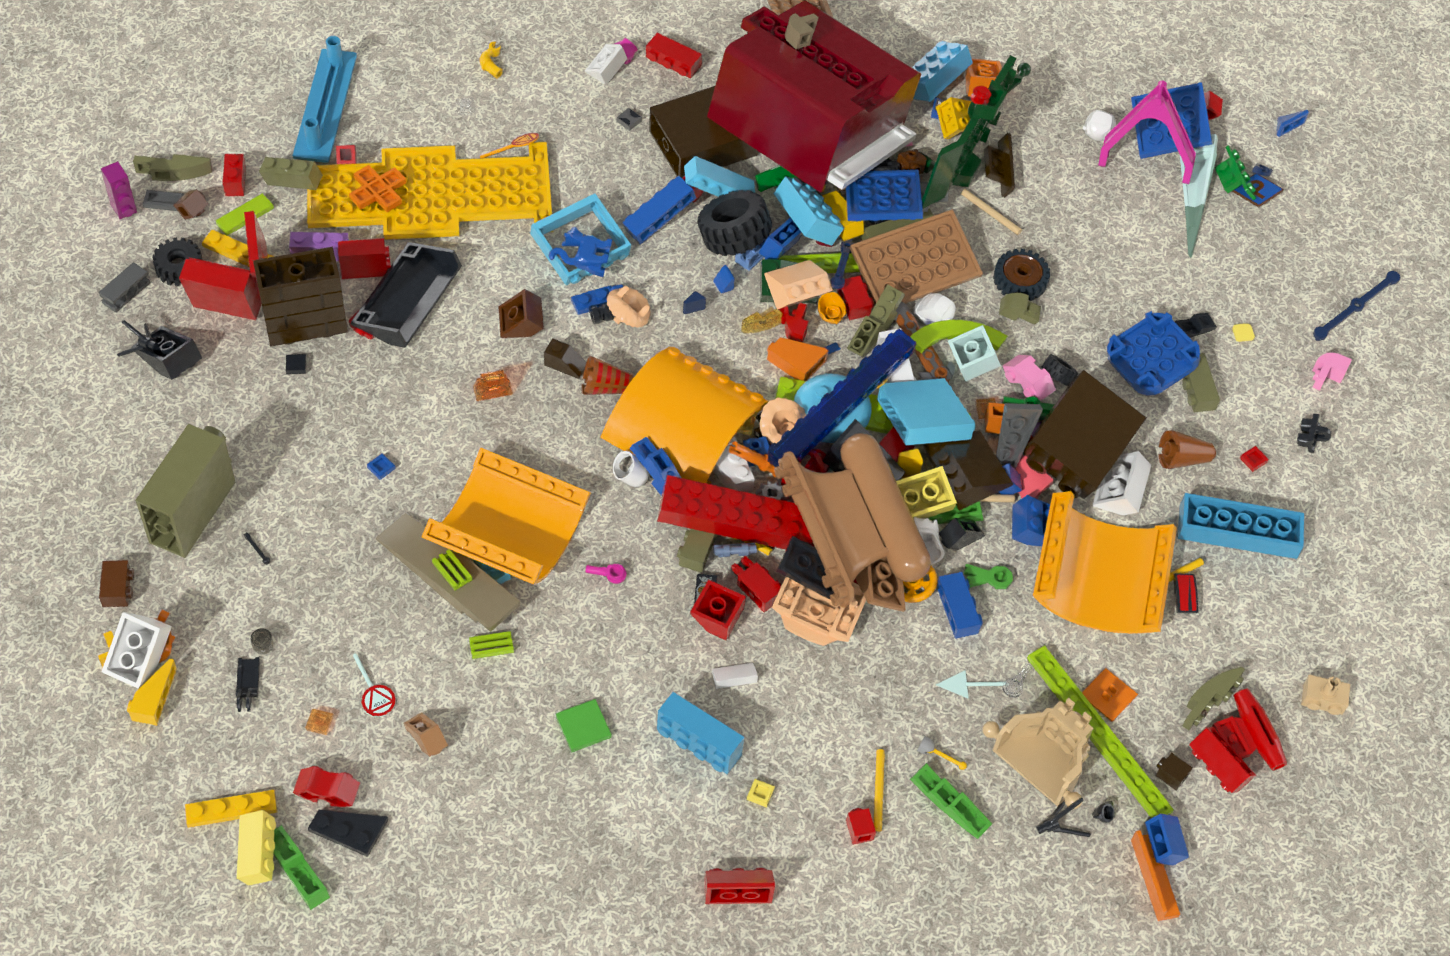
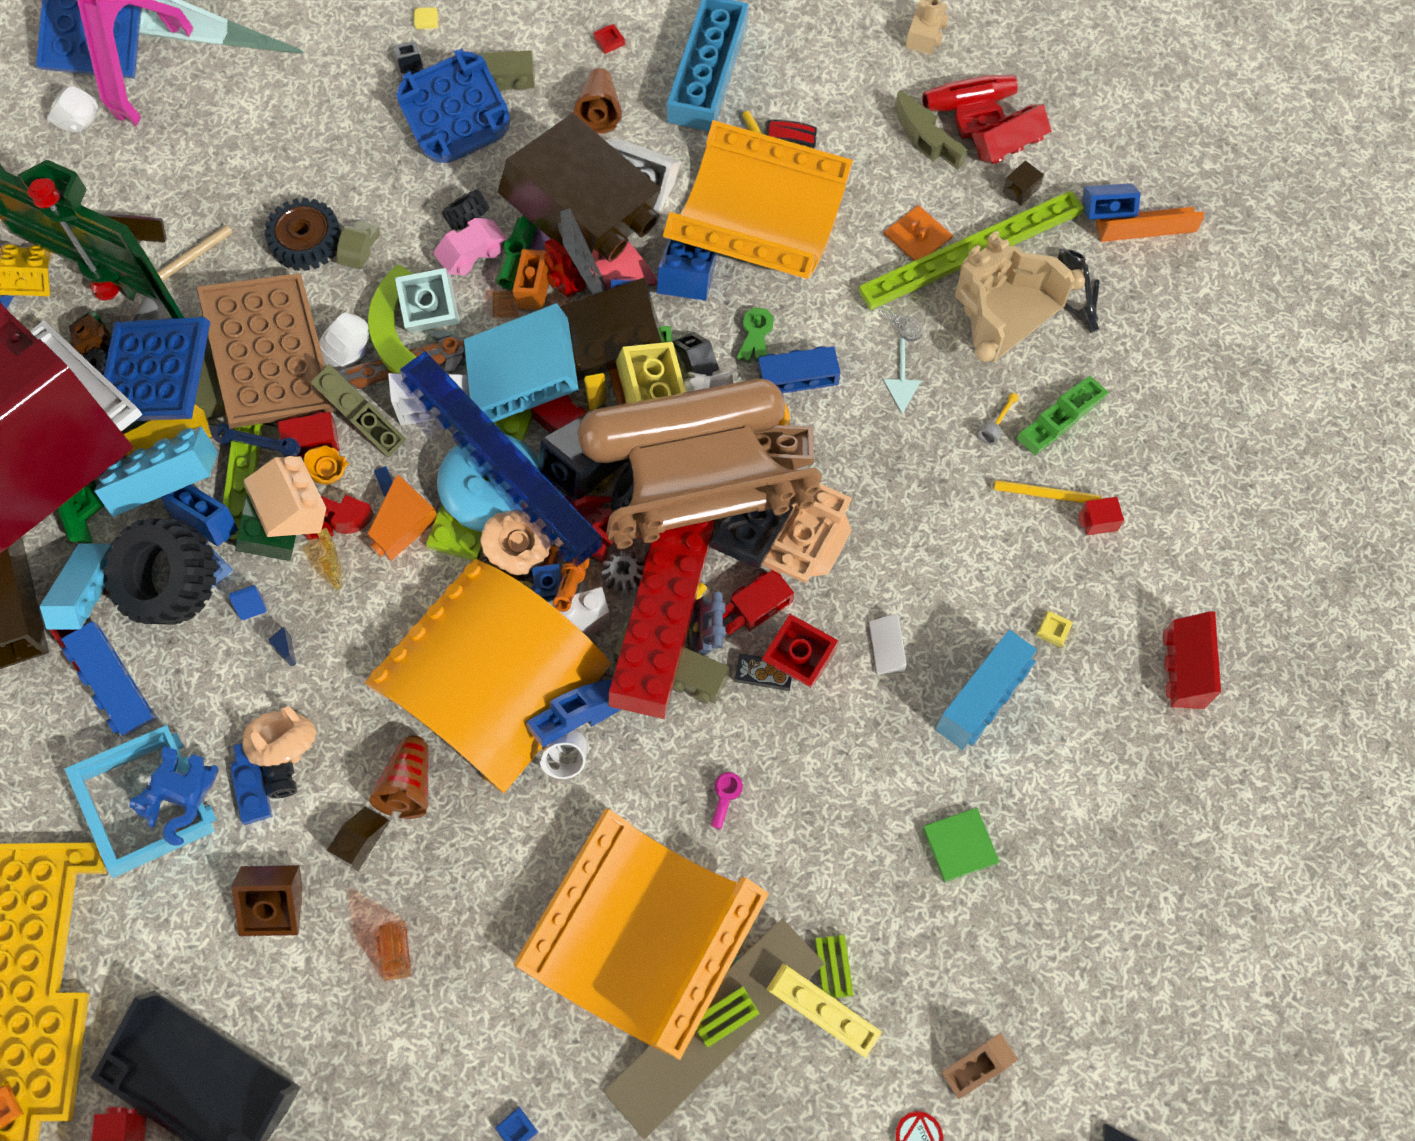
camera: 80 degrees left, 10 degrees up
(458, 631) = (824, 1010): none -> light yellow tile

